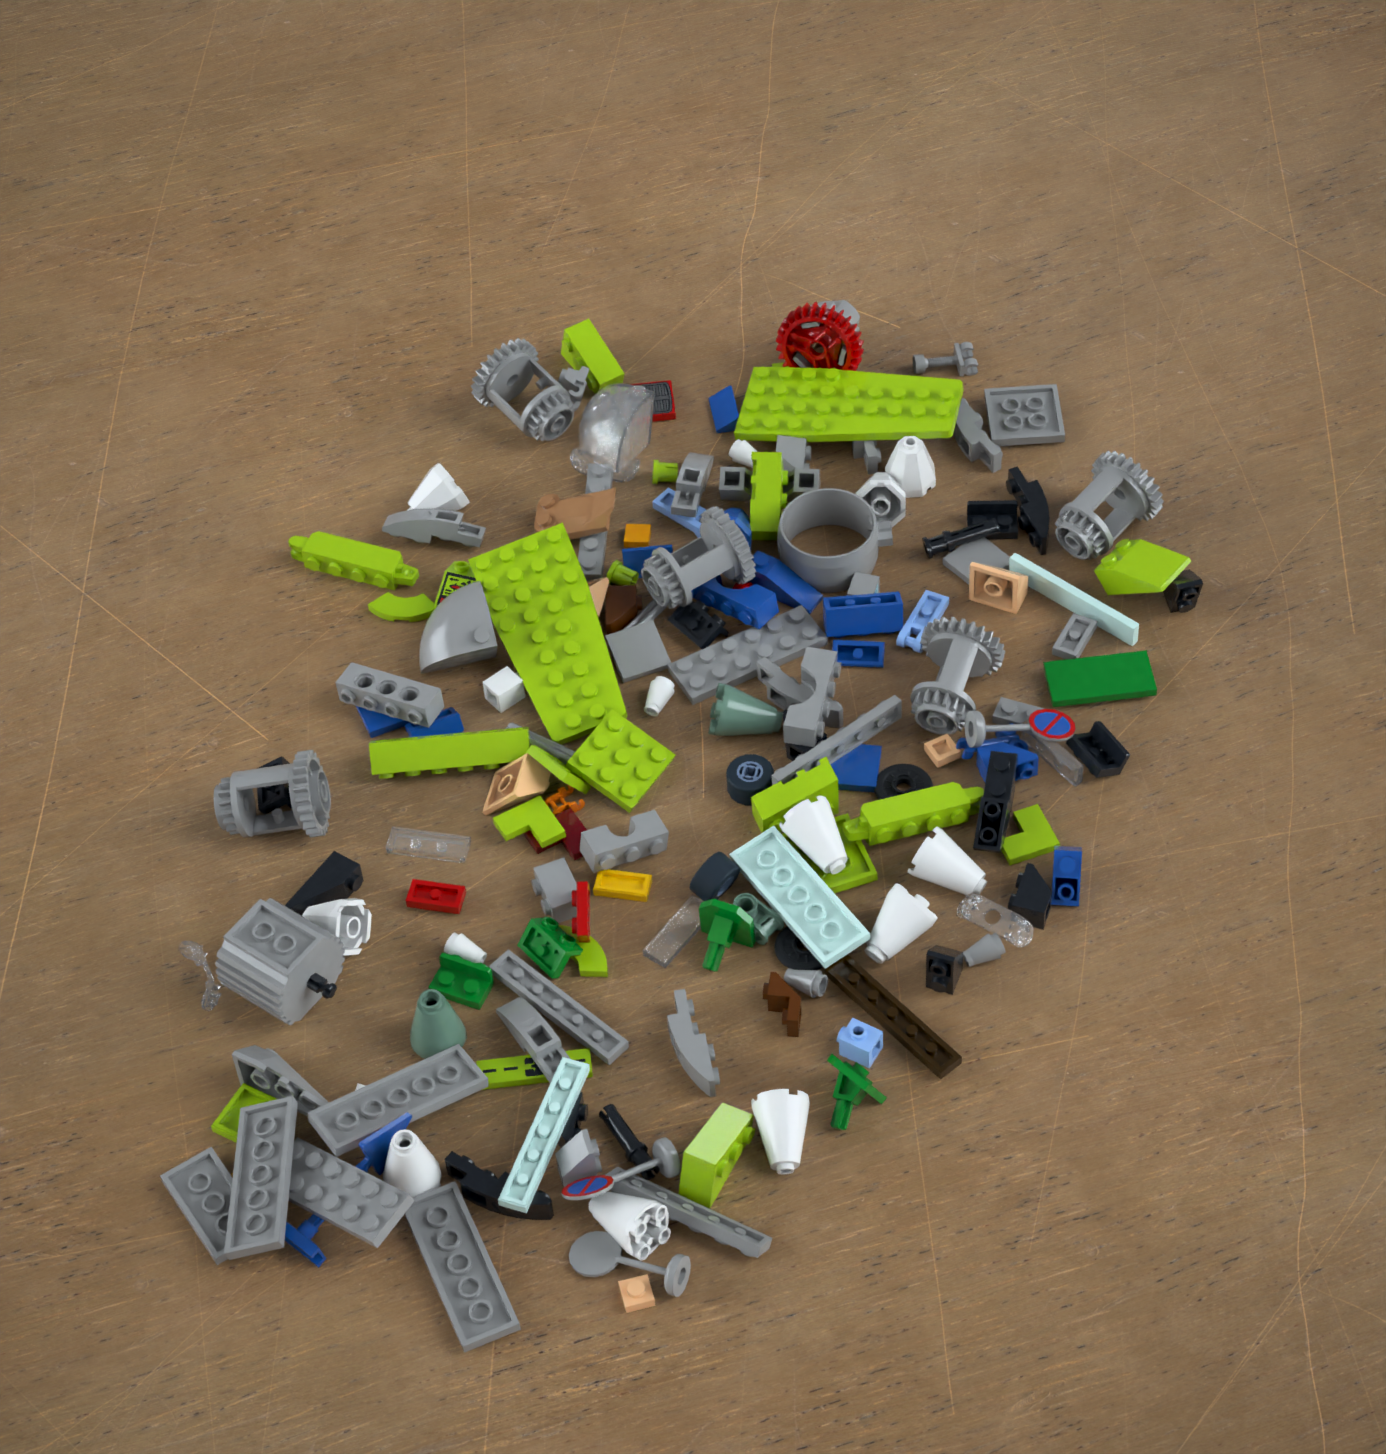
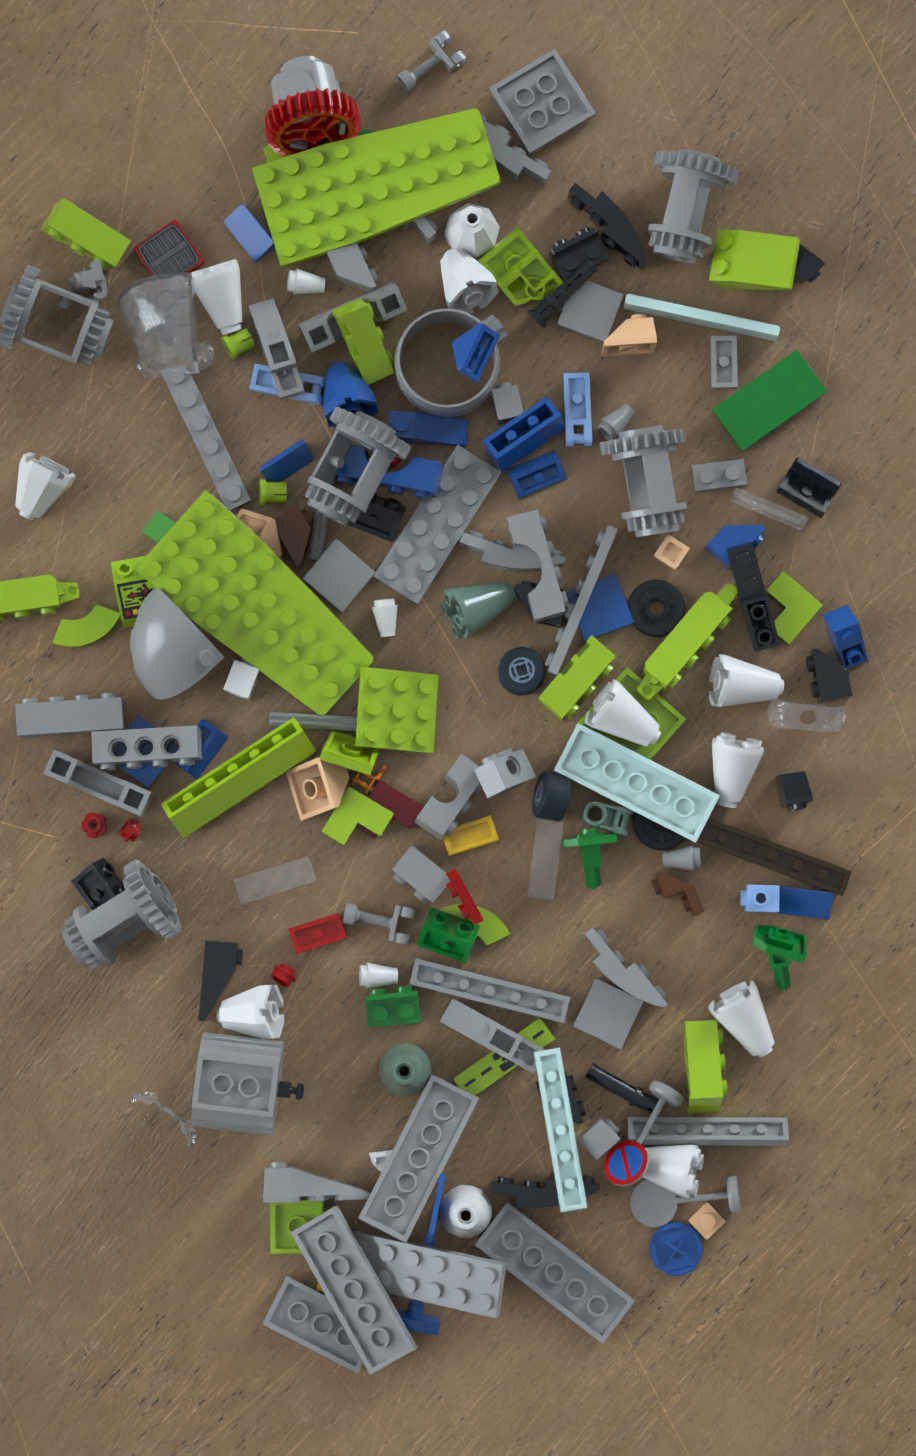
camera: 35 degrees left, 35 degrees up
(306, 740) = (100, 829): none -> red plate
(316, 693) = (98, 783): none -> light grey arch
(333, 755) = (130, 830): none -> red plate
(336, 650) = (70, 716): none -> light grey brick
(383, 915) = (283, 975): none -> red plate
(426, 523) = (58, 521): light grey slope -> none
(502, 927) = (352, 915): none -> light grey bar
(580, 514) = (189, 445): medium nougat slope -> none
(590, 1304) = (675, 1248): none -> blue tile
(637, 535) = (255, 432): light orange tile -> none
(655, 1076) = (608, 1013): none -> light grey tile
(672, 428) = (220, 294): none -> white cone
(683, 838) = (504, 772): none -> light grey brick
(855, 522) = (474, 350): none -> blue slope
(902, 1066) = (805, 902): none -> blue slope
(933, 509) = (520, 269): none -> lime slope
(984, 950) = (815, 751): light grey cone -> none
(1002, 736) = (722, 511): blue bar -> none
(1044, 723) = (756, 485): piece -> none

